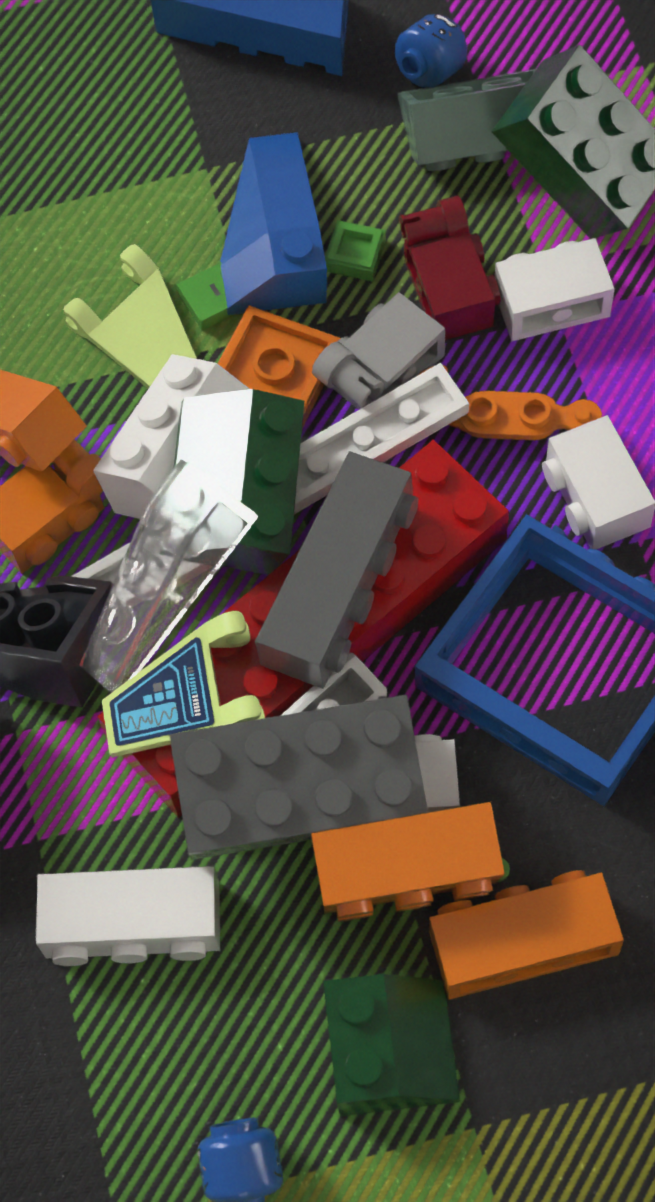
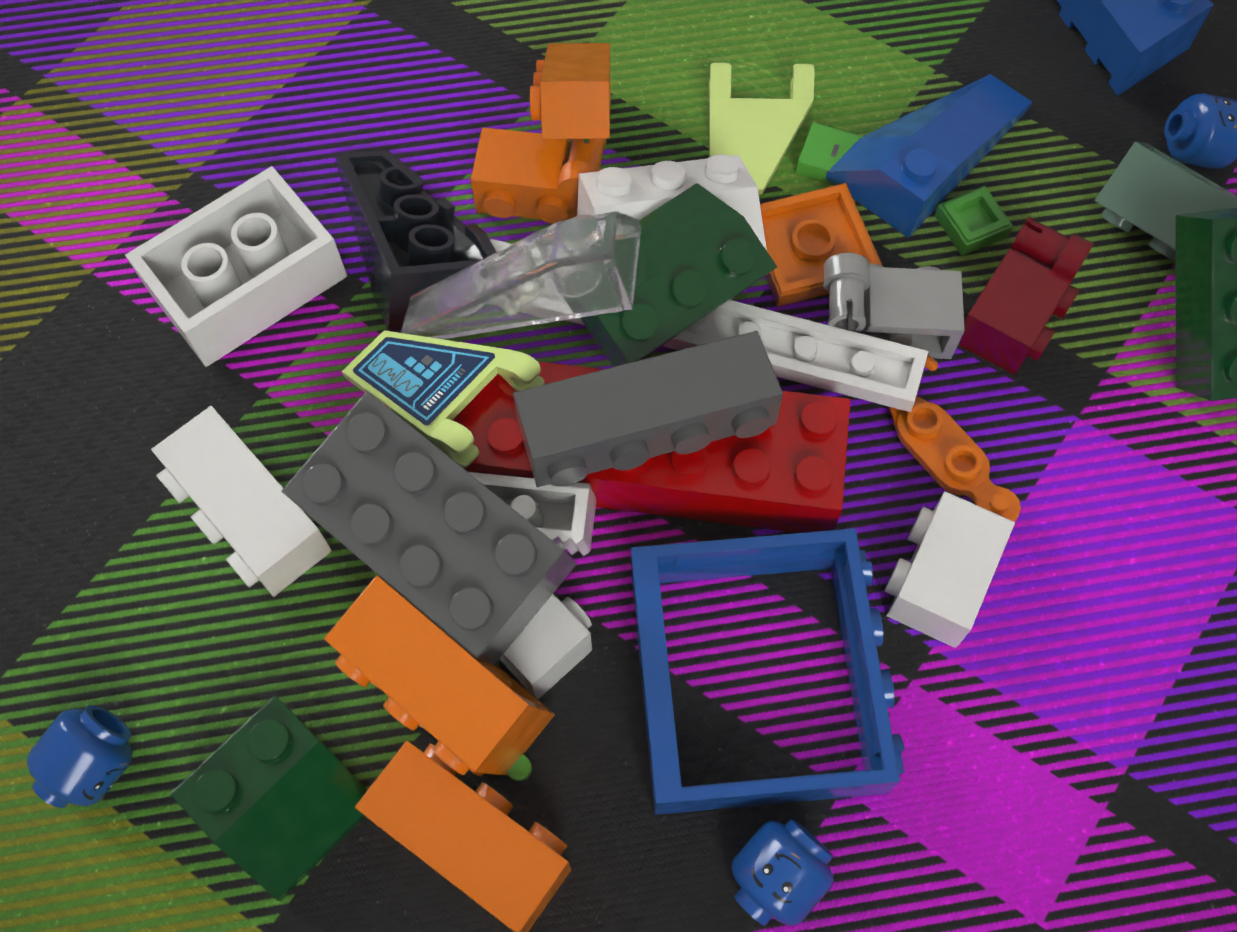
camera: 45 degrees right, 0 degrees up
(554, 289) = (1094, 390): white brick -> none

